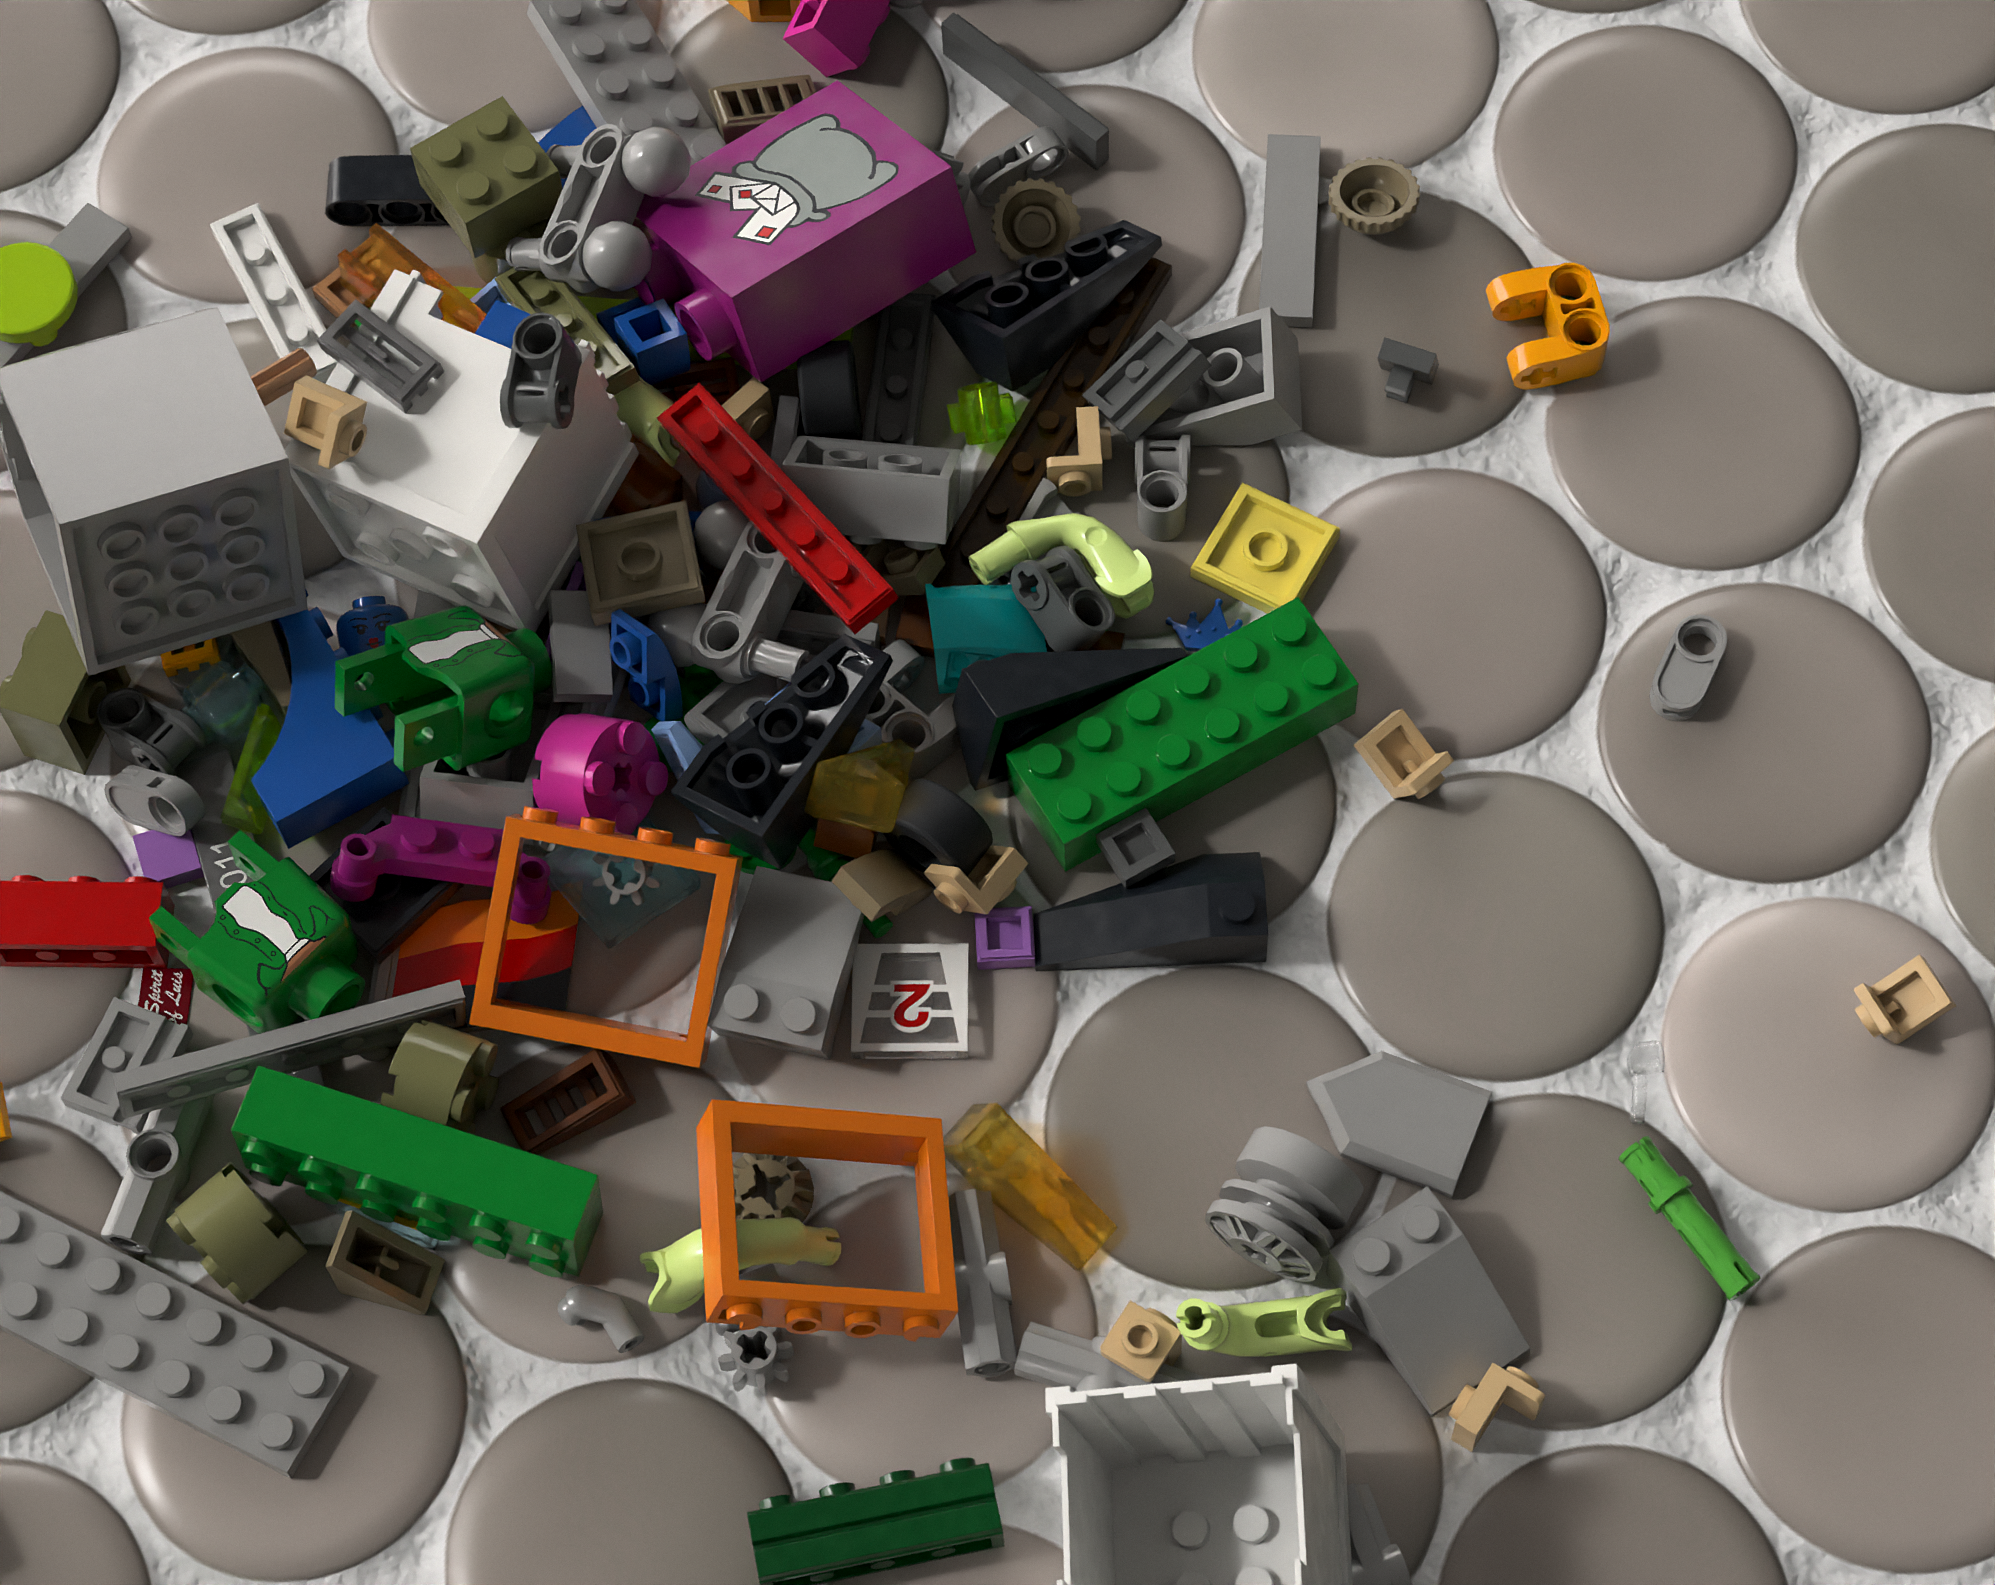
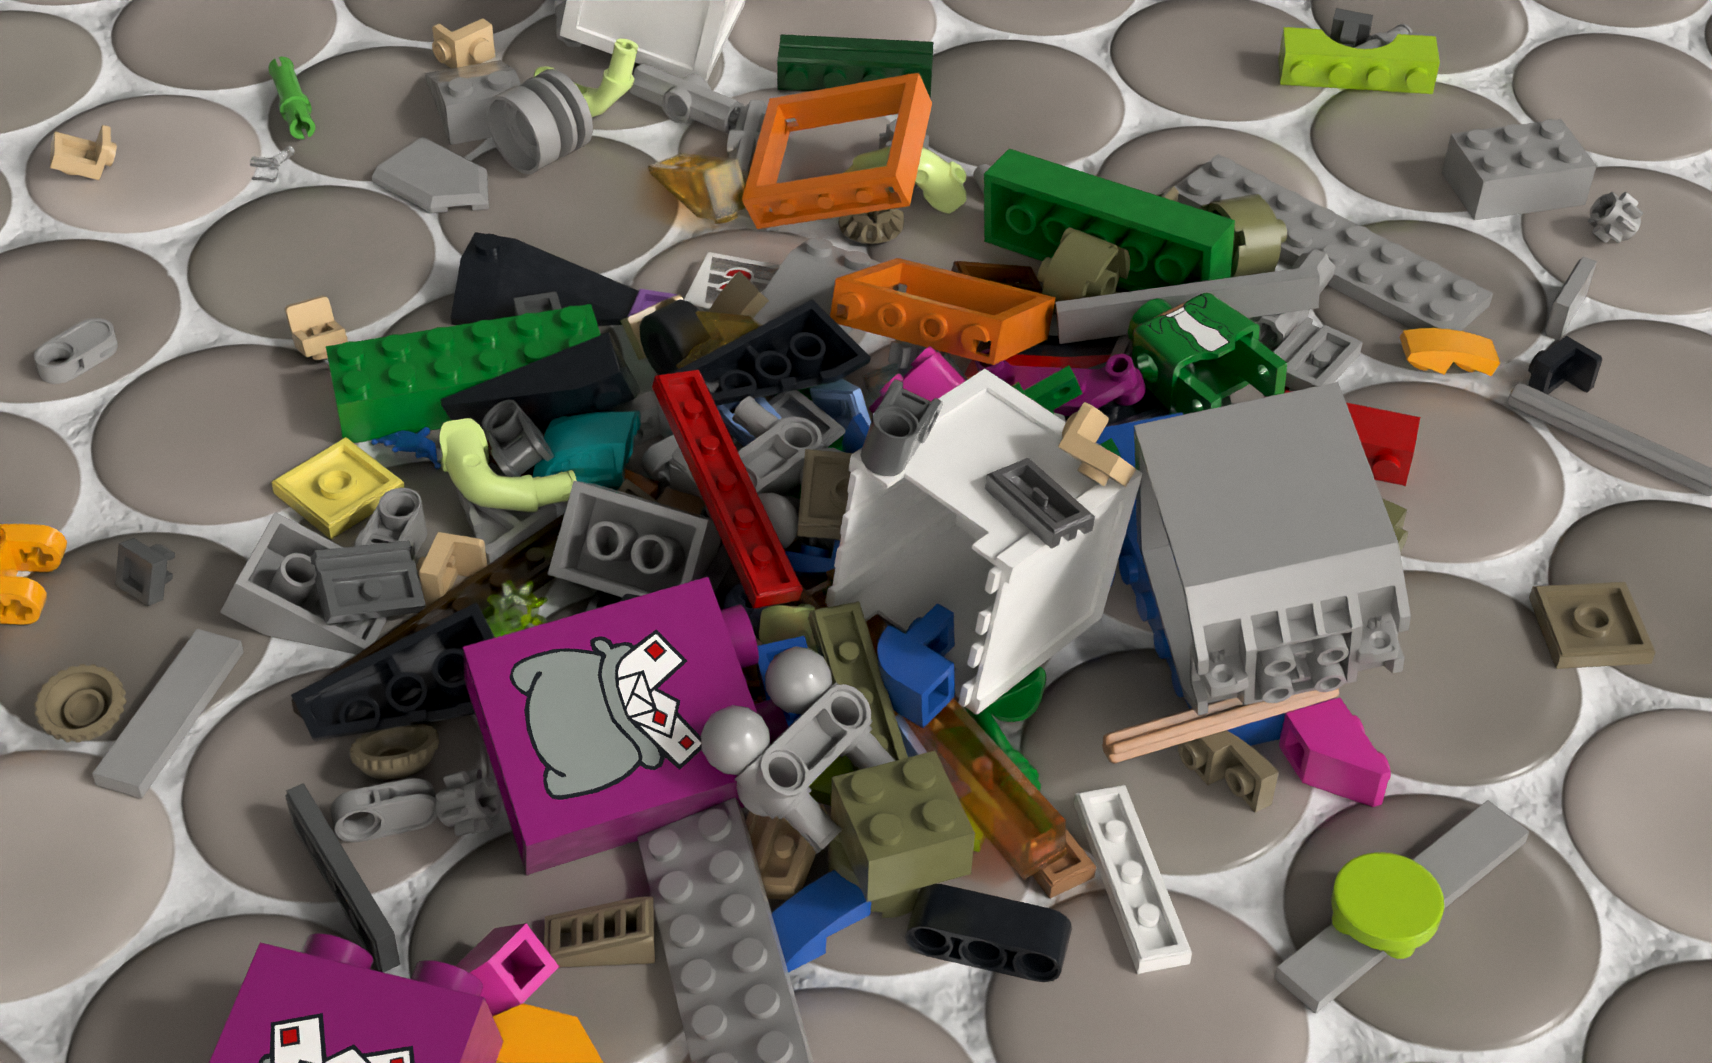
camera: 170 degrees left, 20 degrees down
(1142, 1341) = (654, 96): tan bracket -> none

